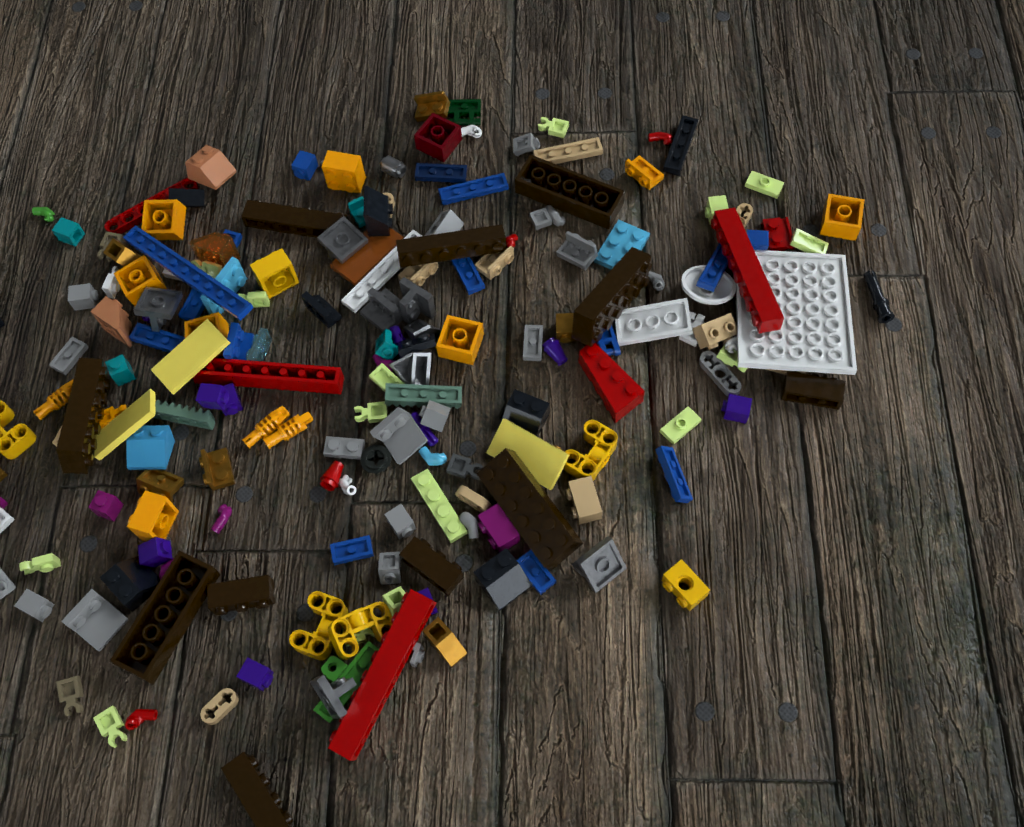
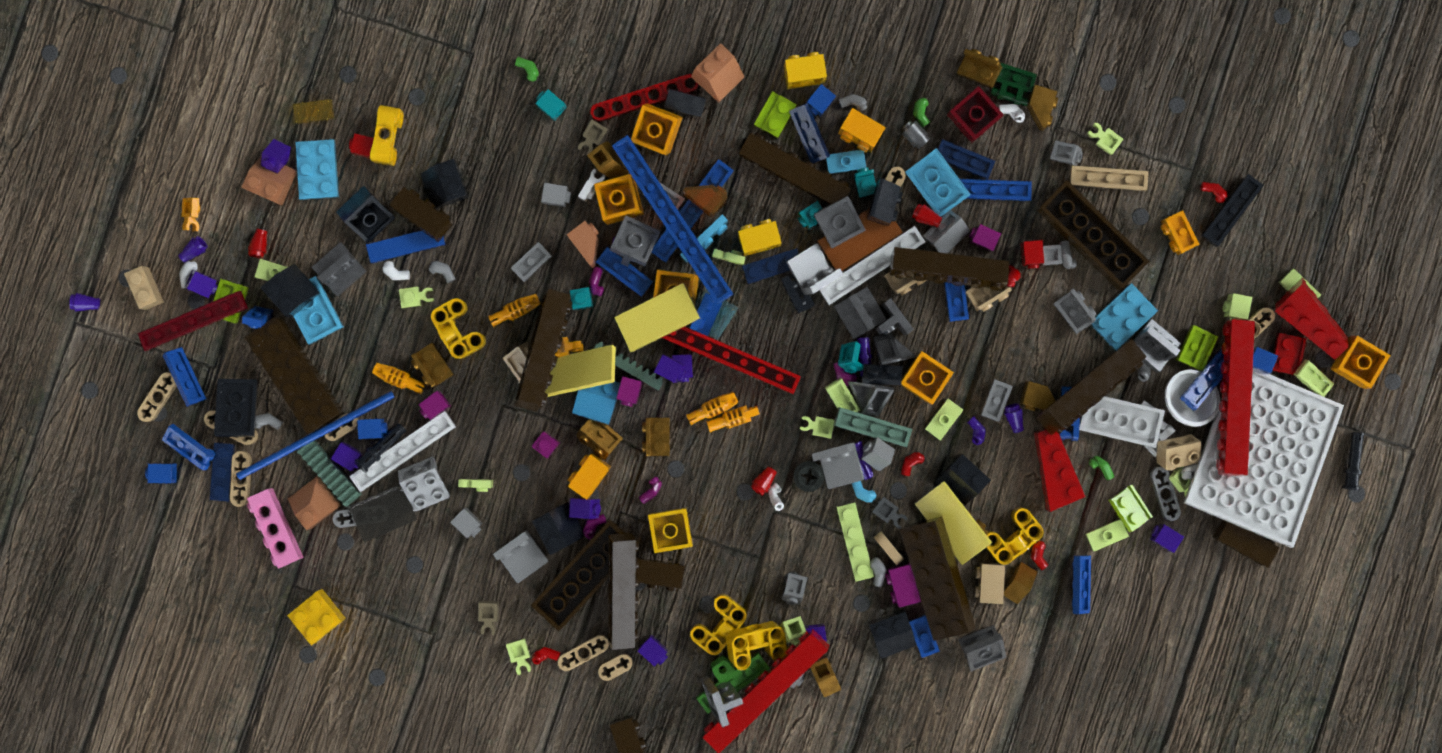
camera: 10 degrees right, 25 degrees up
(131, 355) = (594, 282): none -> magenta arm
(179, 430) = (629, 391): none -> magenta brick
(189, 686) = (593, 641): none -> tan beam
(205, 615) = (621, 591): none -> brick
(208, 267) = (691, 212): yellowish green plate -> none
(246, 546) = (670, 530): none -> yellow brick
(269, 187) = (774, 114): none -> lime plate
(282, 144) = (805, 70): none -> yellow brick
(292, 299) = (768, 267): none -> dark blue plate
(300, 188) = (809, 133): none -> dark blue plate
(317, 252) = (806, 216): none -> teal bracket
(330, 286) = (812, 270): none -> bracket
(338, 203) = (846, 161): none -> medium azure plate
(343, 447) = (781, 453): light grey plate -> none
(351, 550) = (764, 561): blue plate -> none
(391, 150) = (919, 111): none -> bright green arm
(400, 521) = (816, 549): light grey brick -> none
(420, 219) = (926, 216): none -> red cone
(422, 192) = (937, 183): none -> medium azure plate
(431, 565) = (833, 600): dark brown brick -> none
(469, 418) = (910, 461): none -> red arm
(477, 218) = (984, 237): none -> magenta brick
(490, 373) = (944, 419): none -> yellowish green plate
(491, 118) = (1041, 104): none -> pearl gold slope
(523, 221) = (1032, 253): none -> red brick
(526, 373) = (978, 431): none -> dark purple arm
(613, 494) = (1020, 583): none -> pearl gold slope
(620, 462) = (1037, 554): none -> red arm
(653, 366) = (1097, 461): none -> bright green arm
(663, 256) = (1157, 345): none -> flat silver bracket
(683, 574) = (1060, 700): yellow brick -> none
(692, 394) = (1130, 508): none -> lime plate
(696, 249) = (1197, 348): none -> lime plate
(783, 196) = (1312, 319): none -> red wedge

